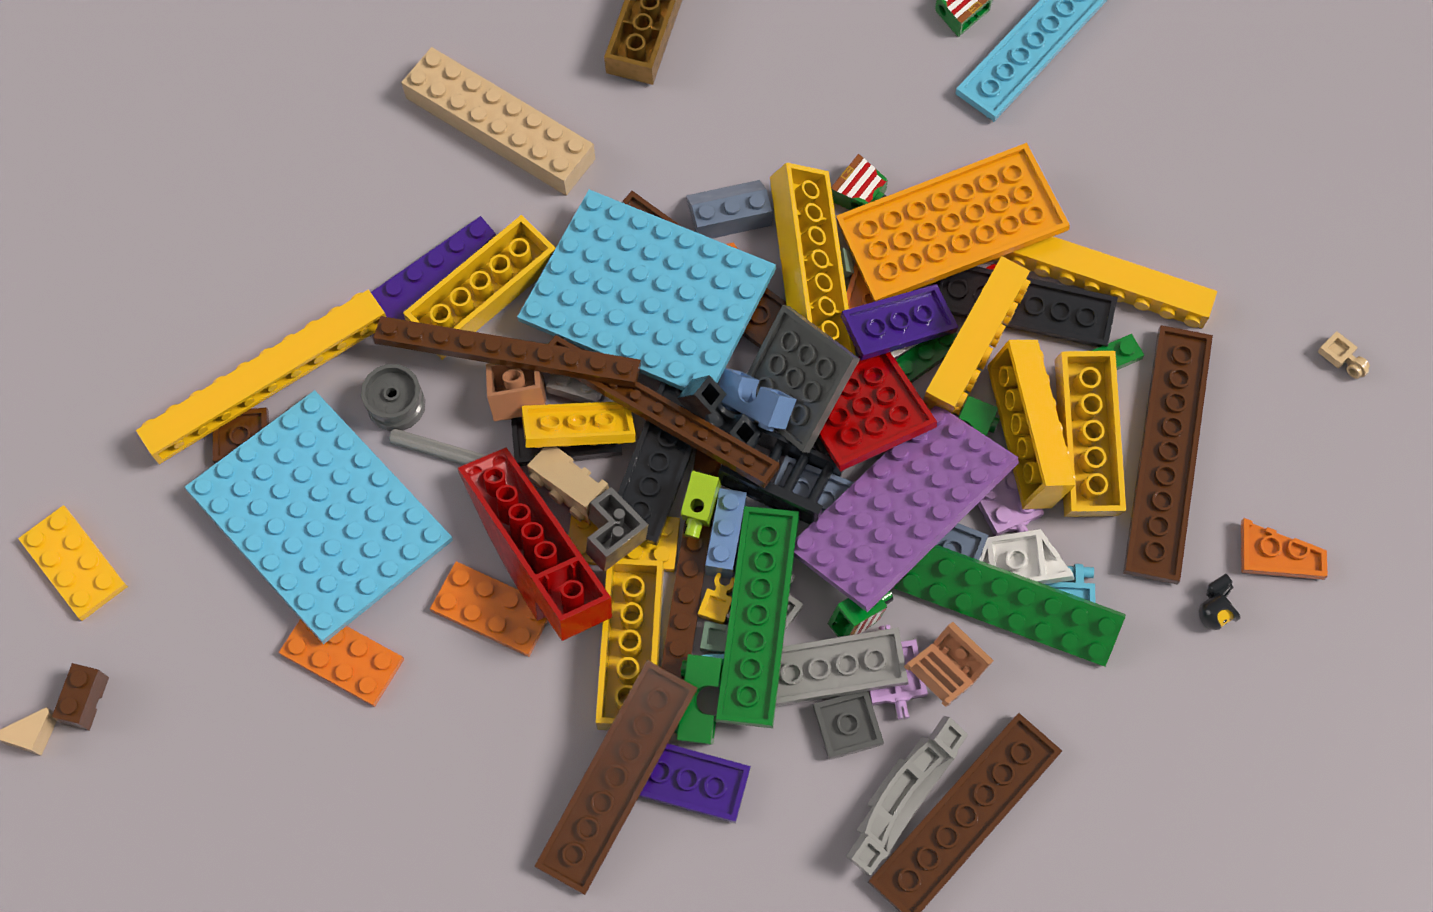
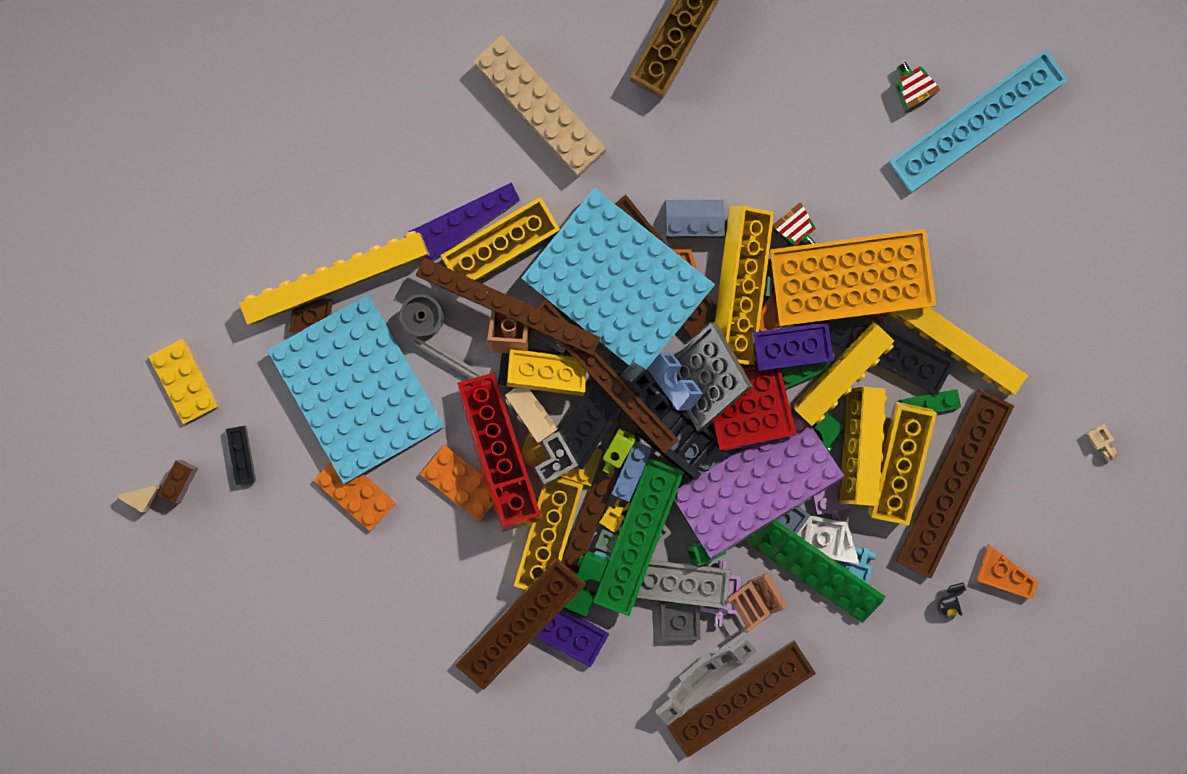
camera: 15 degrees right, 20 degrees up
(168, 642) = (240, 455): none -> black plate

